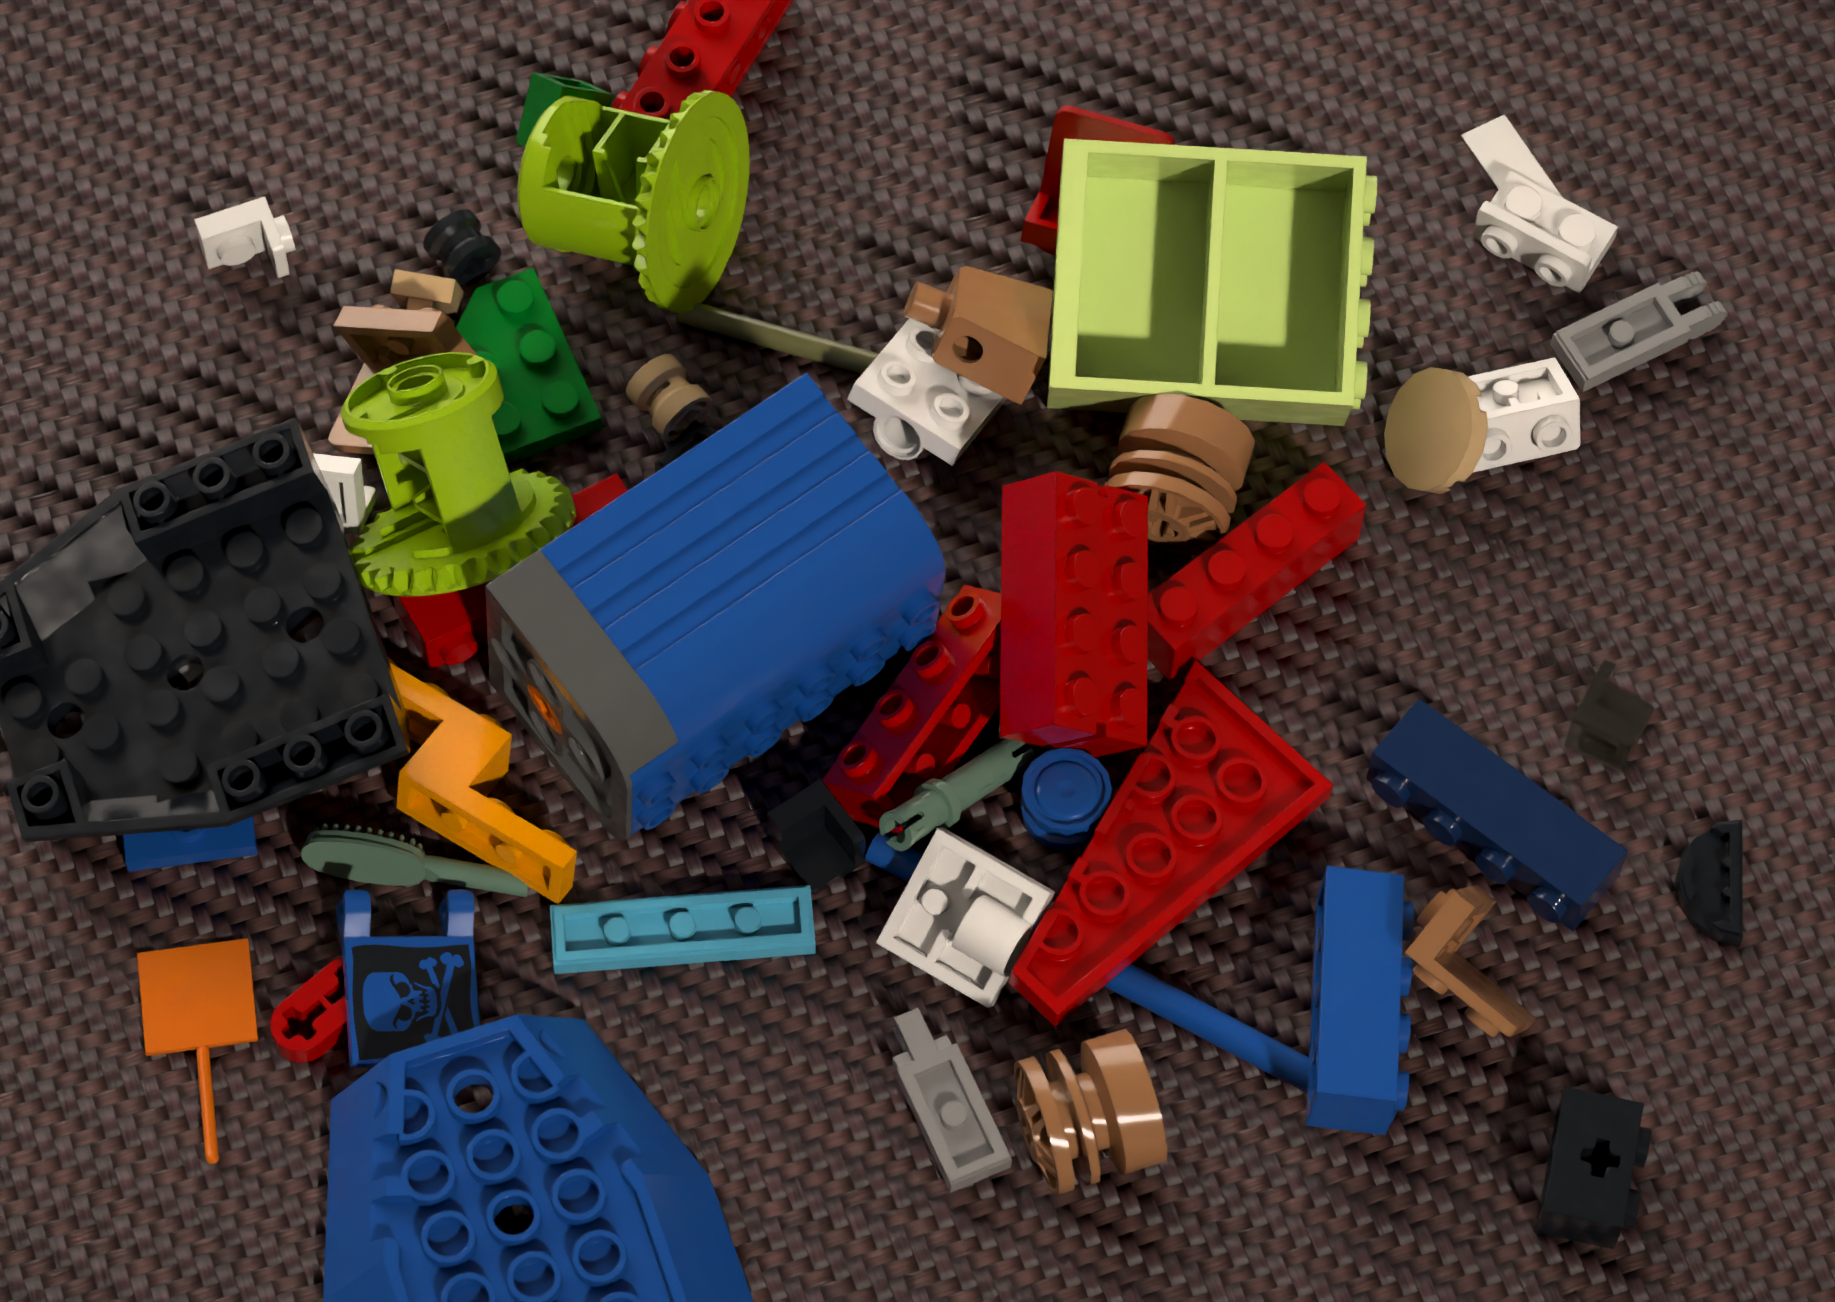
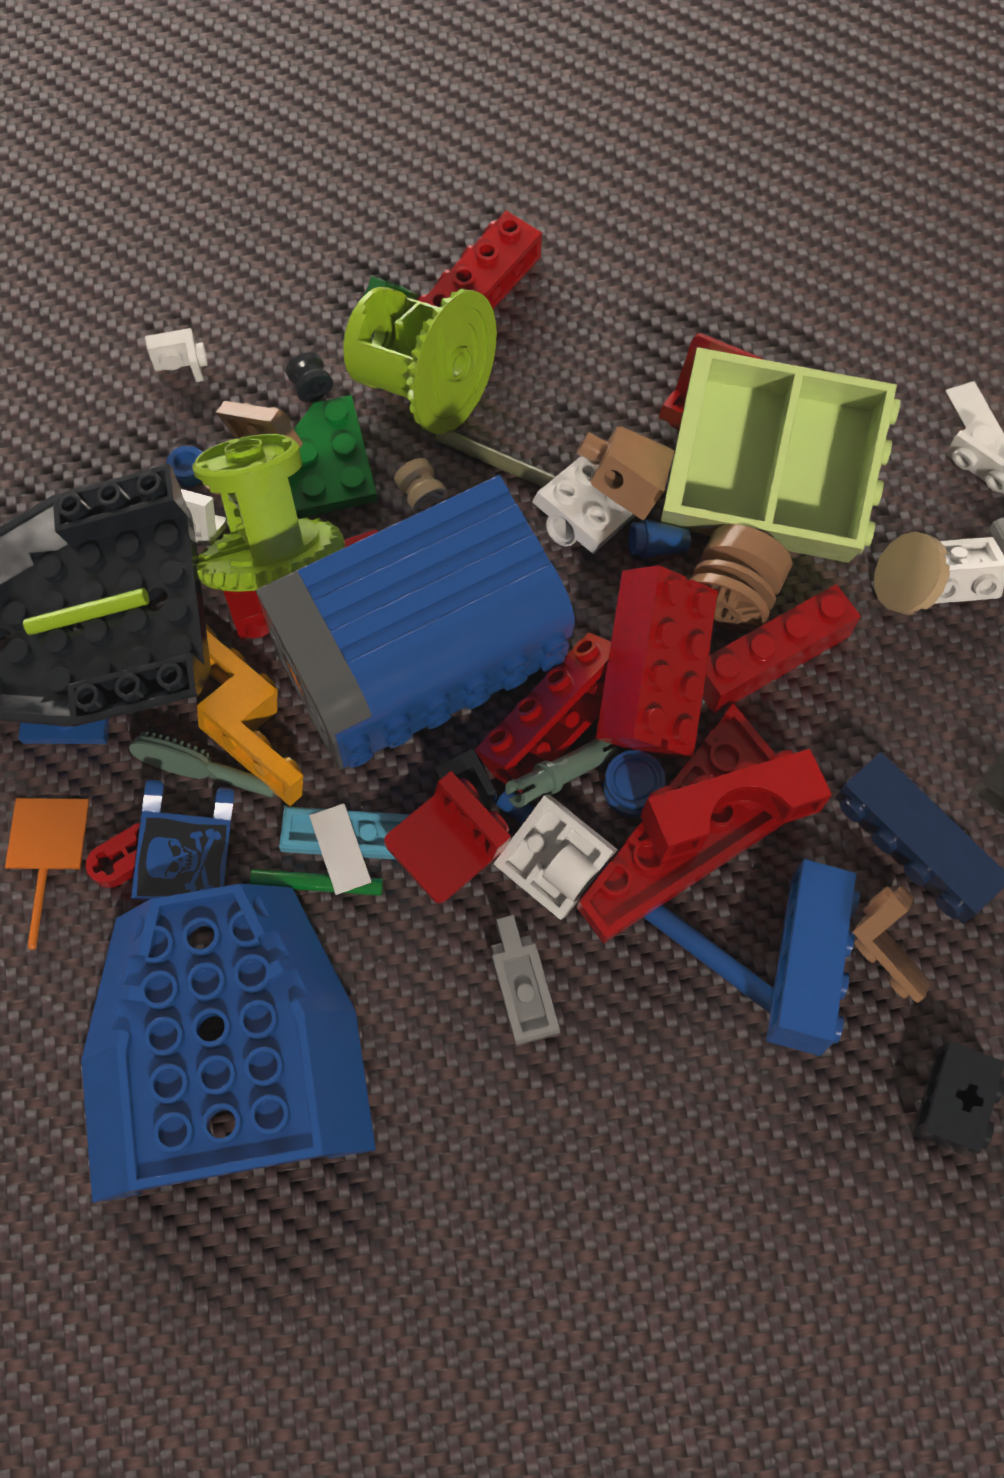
camera: 10 degrees right, 5 degrees up
(201, 657) = (86, 611): none -> lime bar
(293, 401) = (182, 461): none -> blue tile
(425, 290) = (282, 399): tan tile -> none
(627, 1006) = (310, 882): none -> green bar
(645, 953) = (340, 849): none -> white sticker
(806, 911) = (448, 839): none -> red bracket
(1045, 430) = (657, 539): none -> blue cone
(1096, 1110) = (618, 1009): medium nougat wheel -> none
(1283, 768) = (784, 787): none -> red arch

